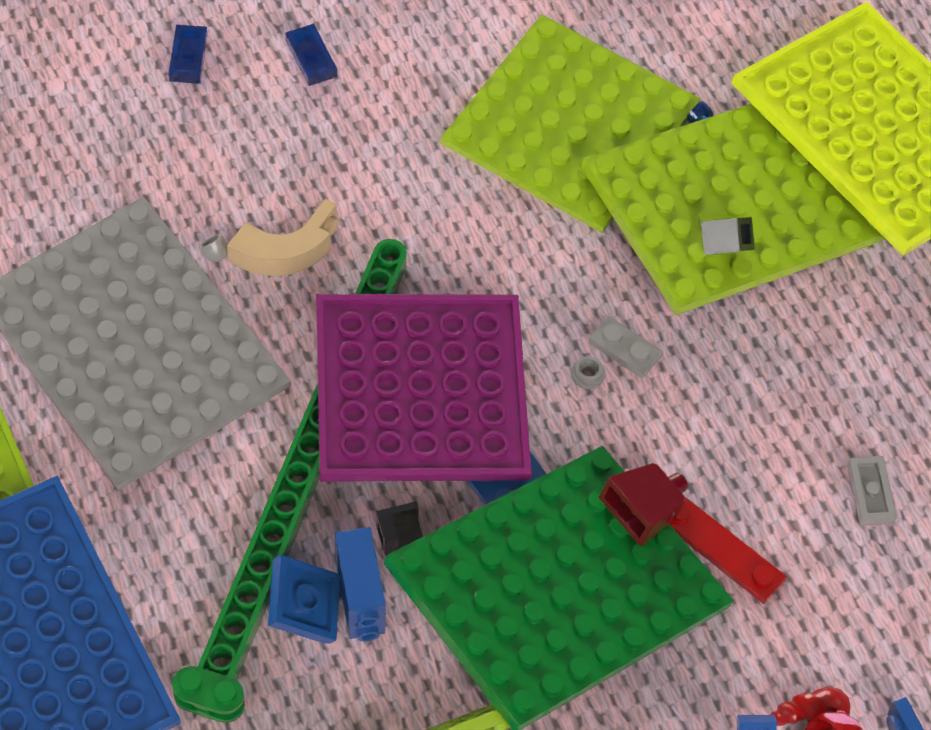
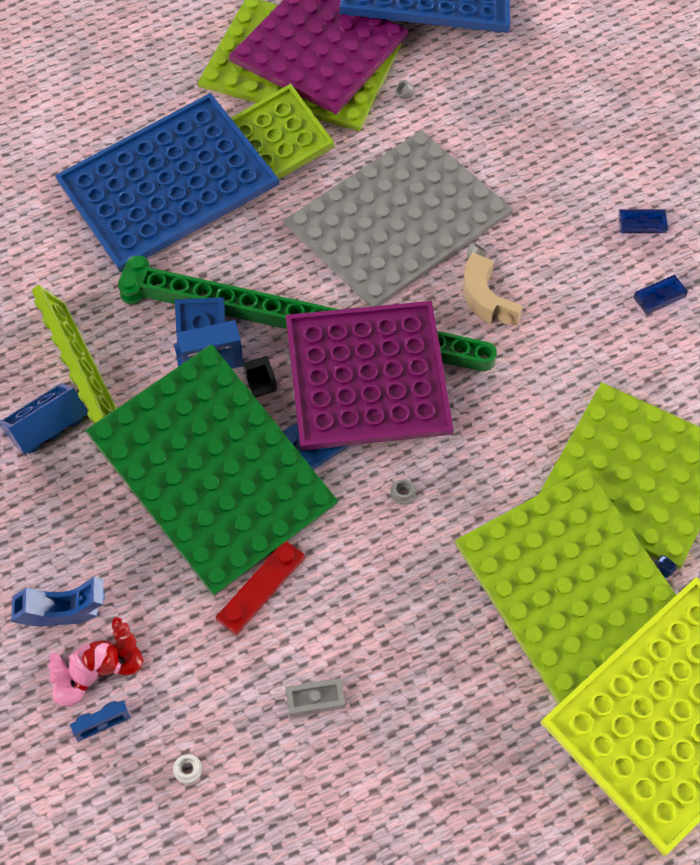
camera: 90 degrees right, 0 degrees up
(625, 347) = (430, 517): light grey plate -> none
(644, 500) = (282, 521): dark red torso -> none
(728, 235) = (525, 570): panel -> none

